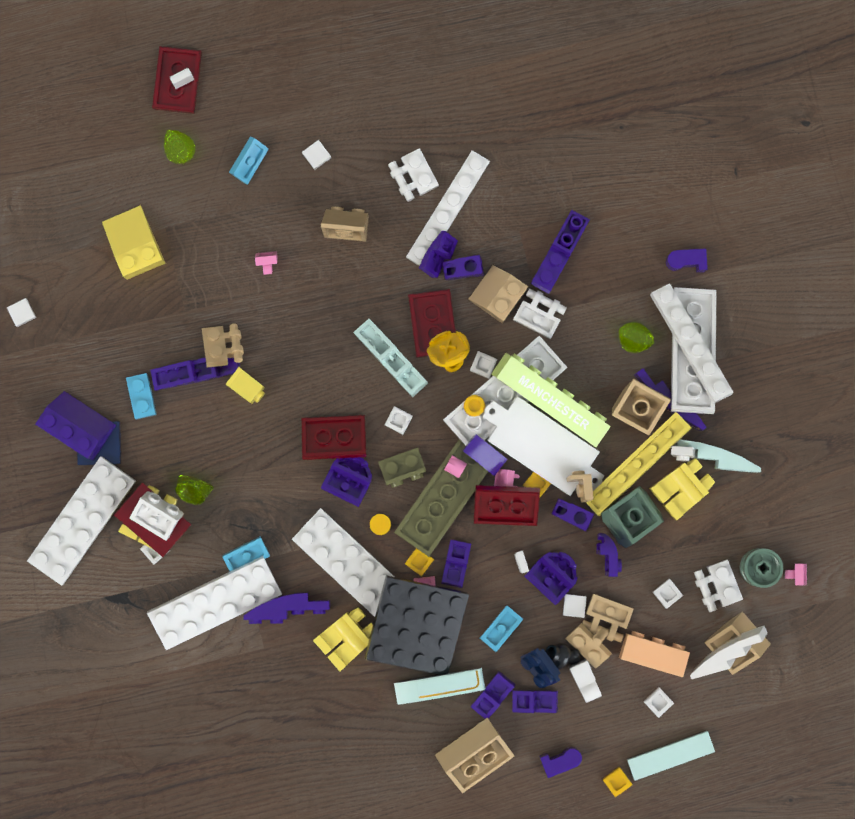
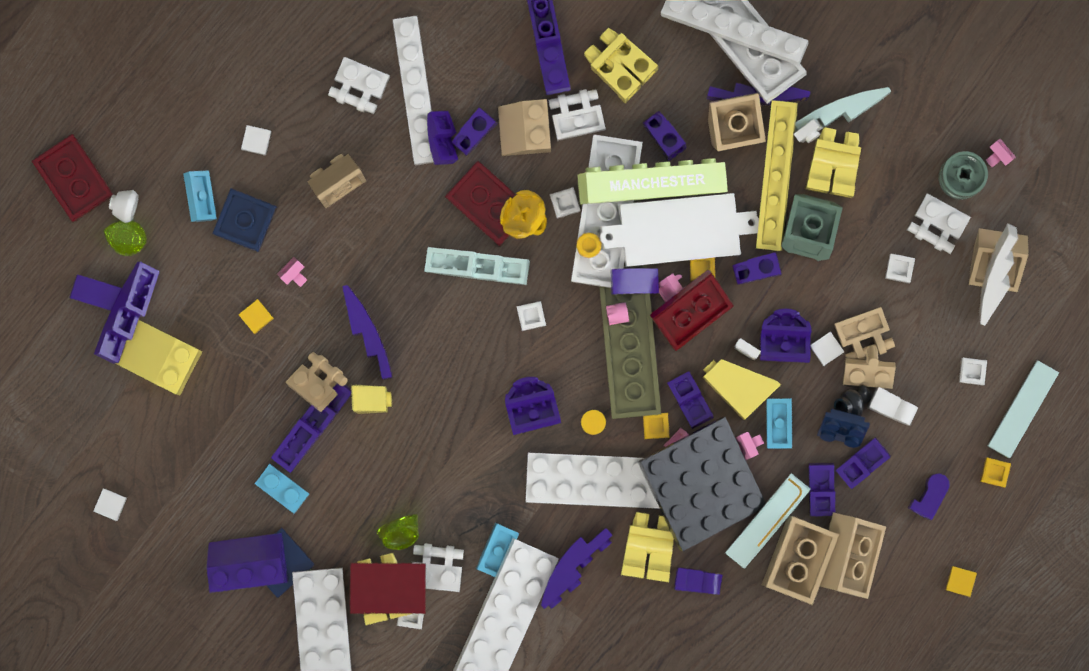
camera: 35 degrees left, 0 degrees up
(129, 168) = (94, 292): none -> dark purple slope
(138, 195) = (127, 309): none -> dark purple slope
(156, 515) = (388, 580): white bracket -> none
(181, 78) = (77, 172): white tile -> none
(194, 125) = (124, 205): none -> white cone
(195, 540) = (441, 576): none -> white plate
(219, 270) = (256, 316): none -> yellow tile
(265, 200) = (244, 220): none -> dark blue tile
(283, 332) = (362, 324): none -> dark purple slope
(333, 437) = (486, 379): dark red tile -> none
(360, 687) = (697, 581): none -> dark purple leg
(402, 467) = (570, 354): olive bracket -> none
(438, 730) = (800, 559): none -> tan slope
(469, 625) = (748, 444): none -> bright pink tile
(495, 582) = (739, 386): none -> light yellow slope
(584, 488) = (748, 236): tan bracket -> none
(586, 376) = (665, 135): none -> dark purple leg
(596, 297) = (612, 62): none -> light yellow hips
(608, 548) = (815, 272): dark purple slope -> none
(635, 337) = (680, 64): clear neon green piece -> none
(654, 654) = (933, 331): light nougat brick -> none

